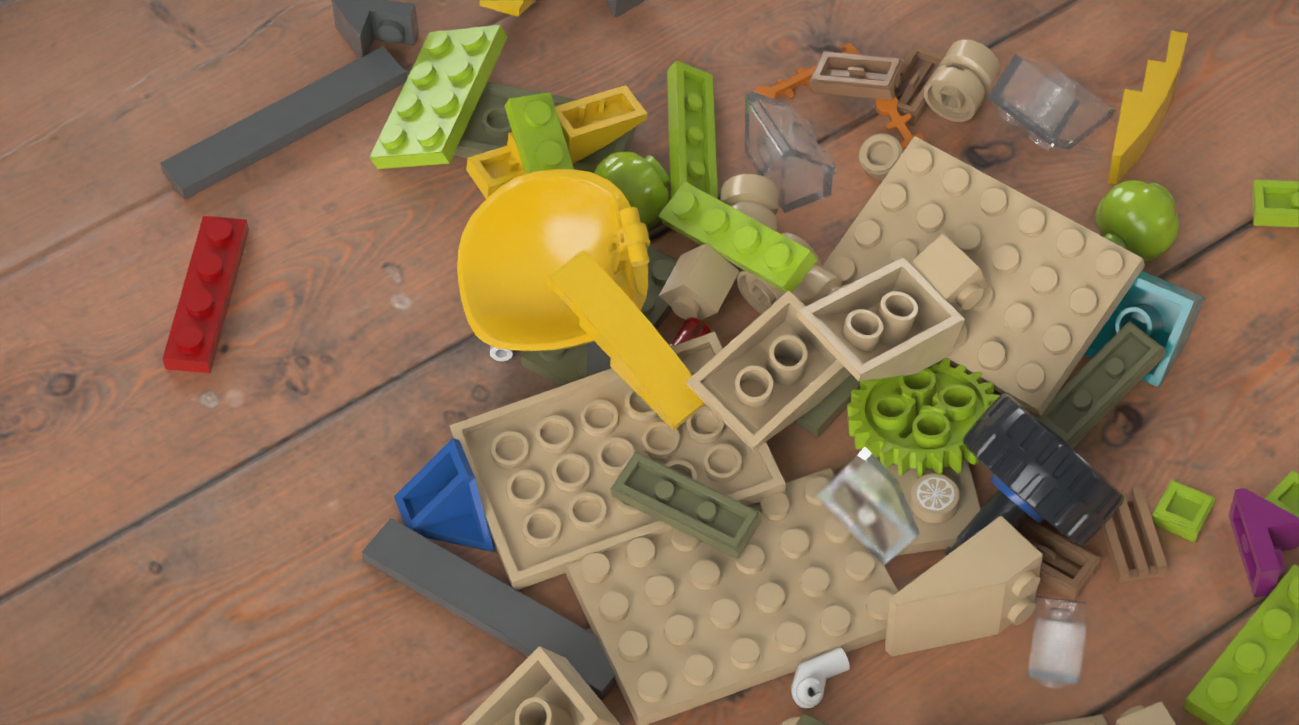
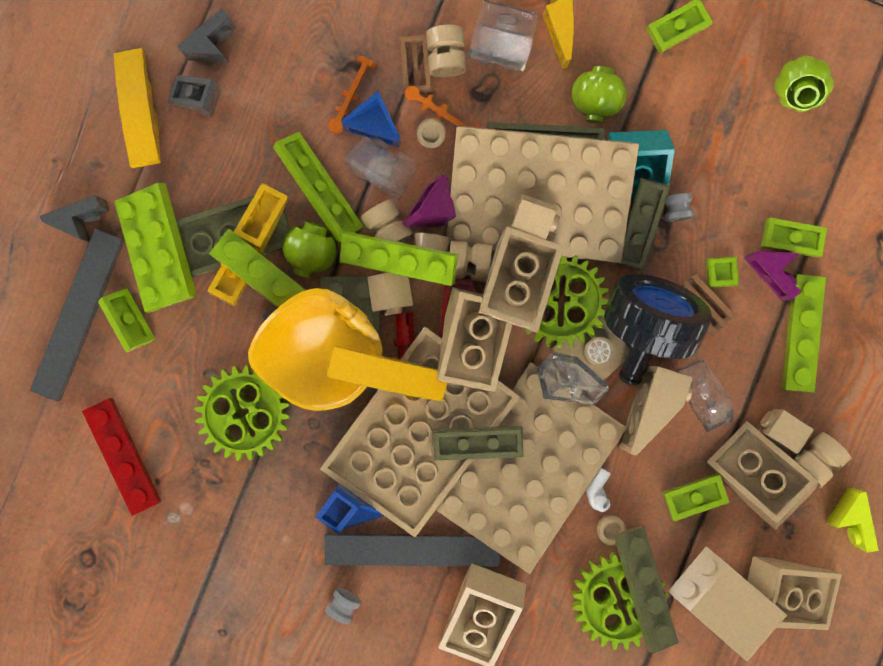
camera: 35 degrees left, 35 degrees up
(341, 151) = (126, 320): none -> lime plate
(346, 612) = (342, 606): none -> light grey wheel
(373, 306) = (219, 424): none -> lime gear
(815, 96) = (372, 121): none -> blue slope
(820, 219) = (433, 206): none -> magenta slope
(856, 81) = (383, 72): medium nougat tile -> none
(1165, 395) = (678, 207): none -> light grey wheel

